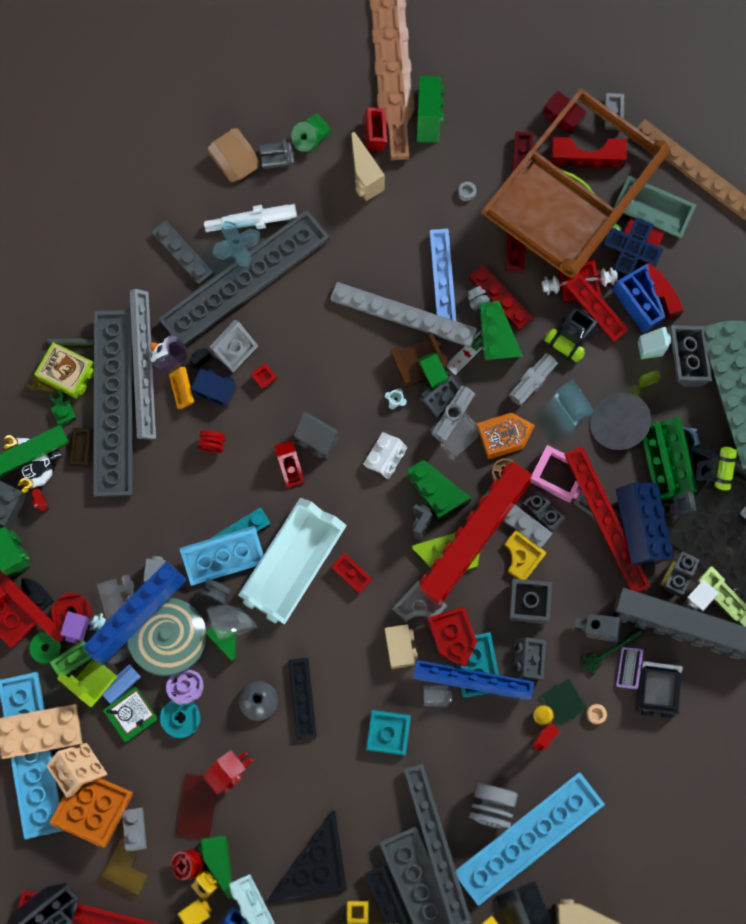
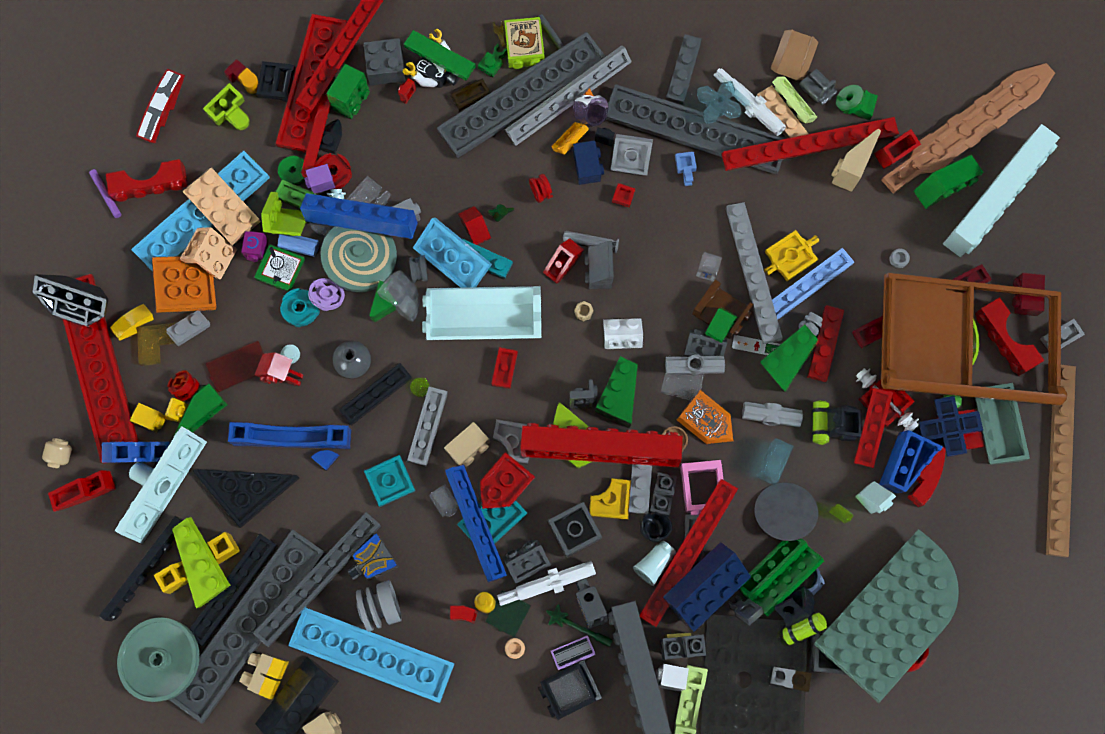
camera: 55 degrees right, 0 degrees up
(93, 878) = (127, 324): none -> yellow slope
(96, 724) = (254, 246): none -> magenta brick
(205, 519) = (475, 225): none -> red slope
(208, 490) = (500, 212): none -> dark green piece
(217, 750) = (291, 352): none -> light aqua plate
(271, 307) = (686, 164): none -> medium blue plate
(274, 181) = (794, 100): none -> yellowish green plate
(285, 430) = (589, 240): none -> light grey axle
(294, 795) = (296, 437): none -> blue arch
(301, 198) = (783, 112): none -> light nougat plate
(320, 656) = (419, 387): none -> clear neon green piece
(322, 196) = (807, 144): none -> red plate
(332, 777) = (325, 458): none -> blue tile
(344, 475) = (583, 311): none -> tan tile
(361, 670) = (427, 426): none -> light grey plate
(375, 347) = (709, 266): none -> clear brick
(398, 393) = (679, 307): light aqua plate -> none
(408, 274) = (791, 255): none -> yellow plate
(449, 788) = (372, 560): none -> torso
(466, 74) = (1002, 192): none -> light aqua brick
(561, 644) = (554, 580): none -> white piece
(568, 533) = (655, 527): none -> black hair
(597, 553) = (655, 562): none -> light aqua plant
(690, 355) = (886, 535): dark grey slope -> none

